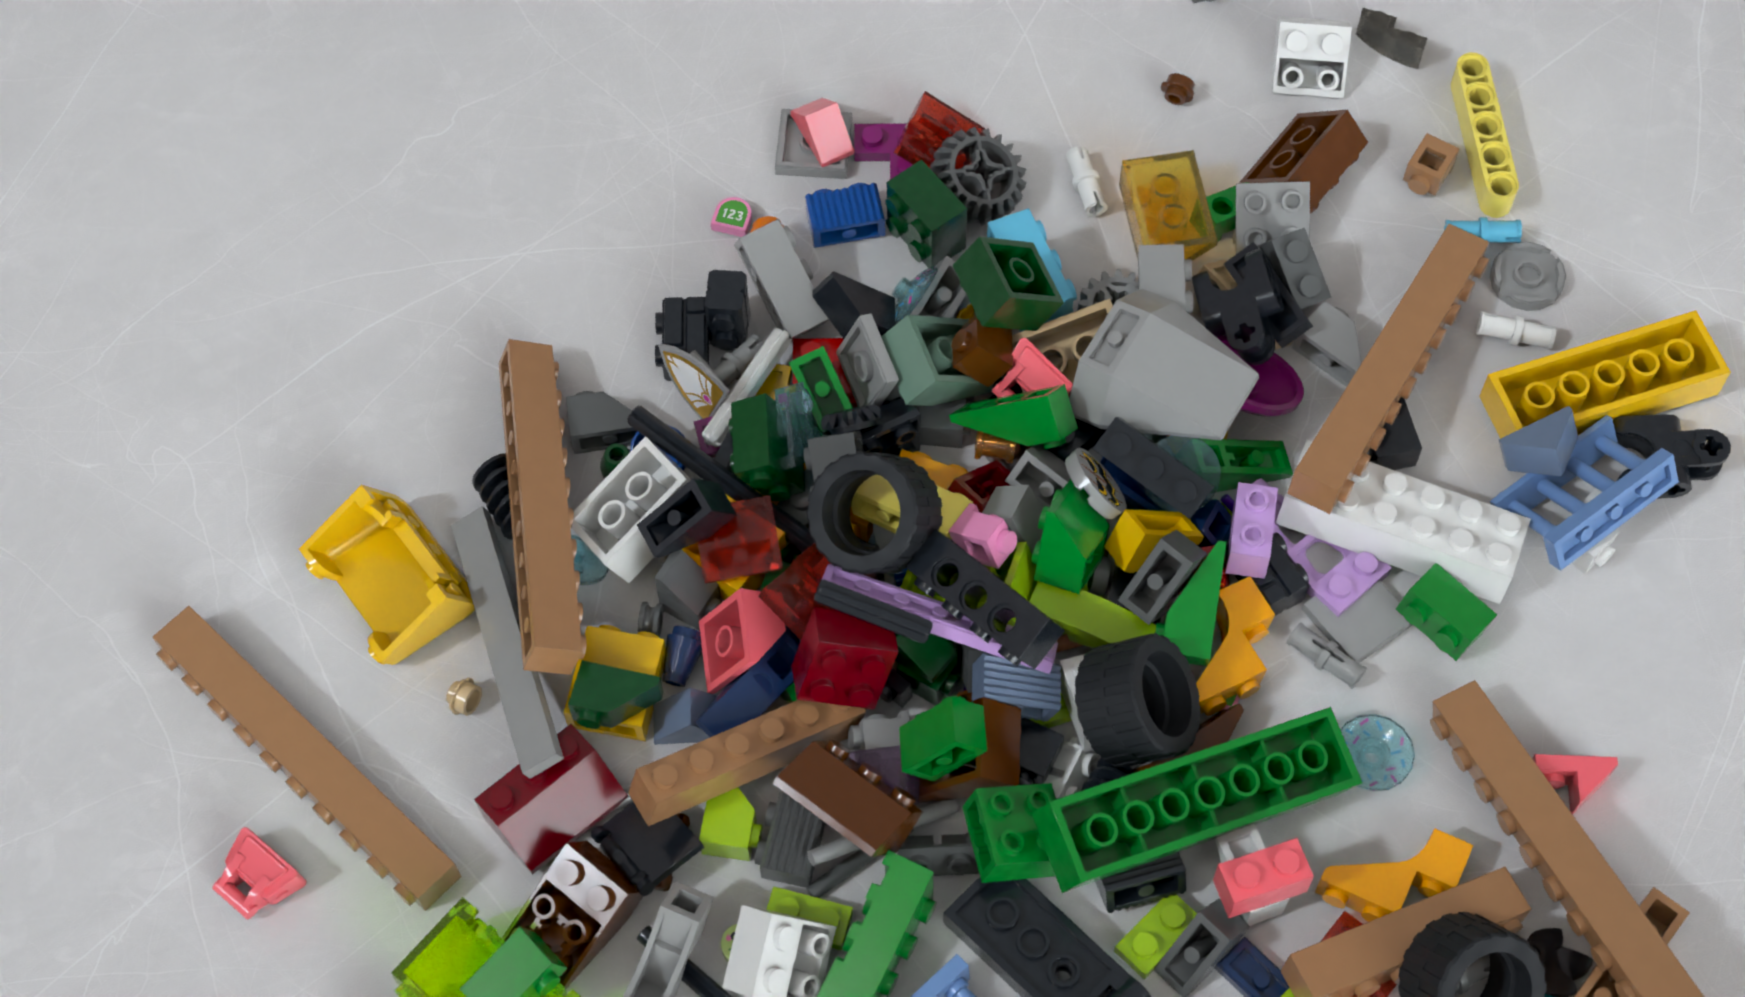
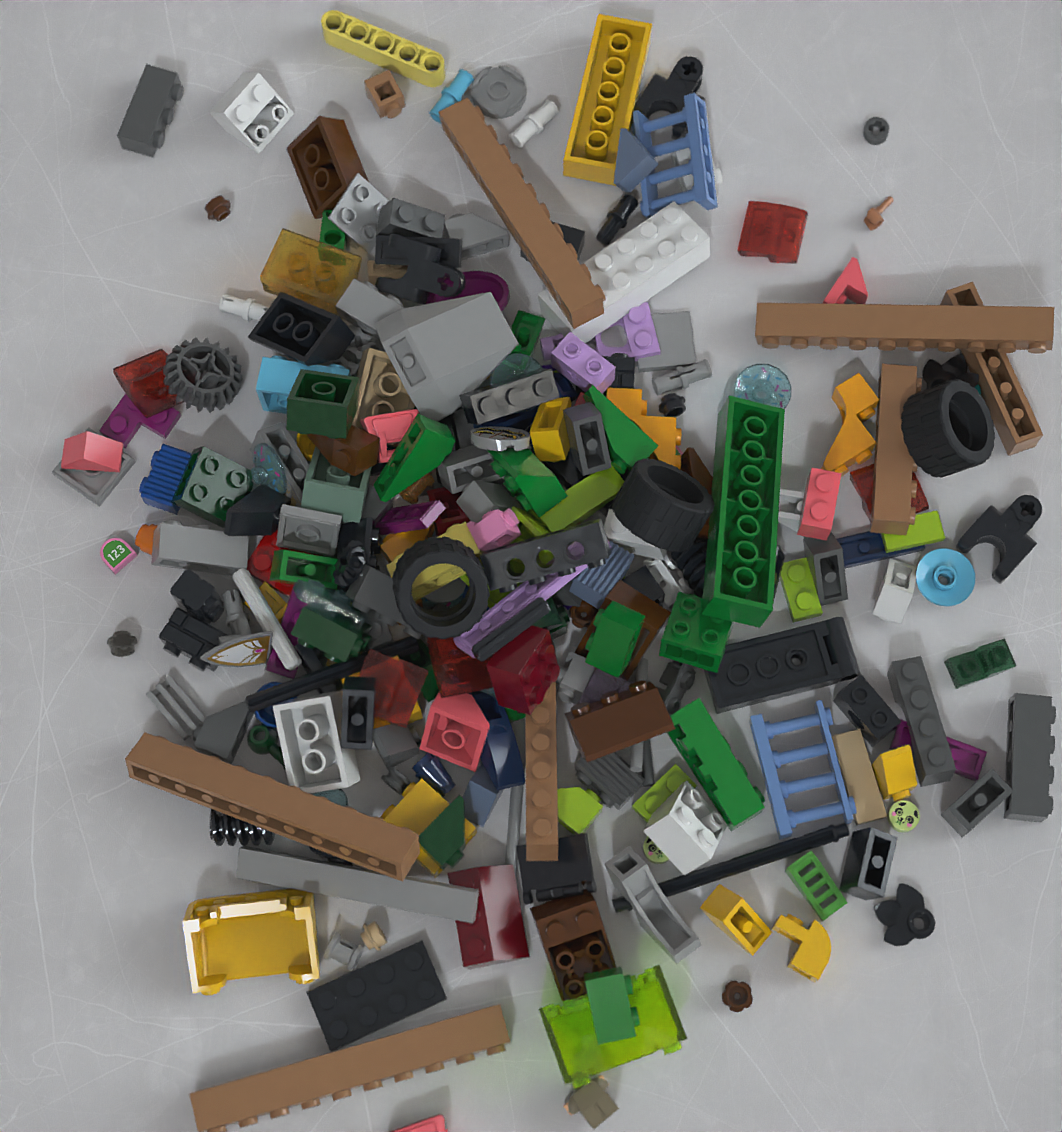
camera: 60 degrees left, 10 degrees up
(401, 739) = (376, 996): none -> black plate
(429, 675) = (344, 951): none -> light grey bush
(588, 363) = (161, 689): none -> light grey tile
(638, 275) = (122, 643): none -> clear smoke plate
(862, 250) = (212, 485): none -> brick
(925, 215) = (212, 424): dark green brick -> none
(950, 456) = (410, 517): none -> magenta tile
(1087, 235) = (302, 331): none -> black slope
(1284, 664) = (672, 405): none -> black plate
(1401, 46) = (264, 59): clear smoke slope -> none
(1446, 611) = (699, 290): green brick -> none
(1468, 479) = (617, 219): none -> black axle
(1584, 656) = (772, 232): none -> clear red slope
(1695, 759) = (873, 218): none -> nougat hand

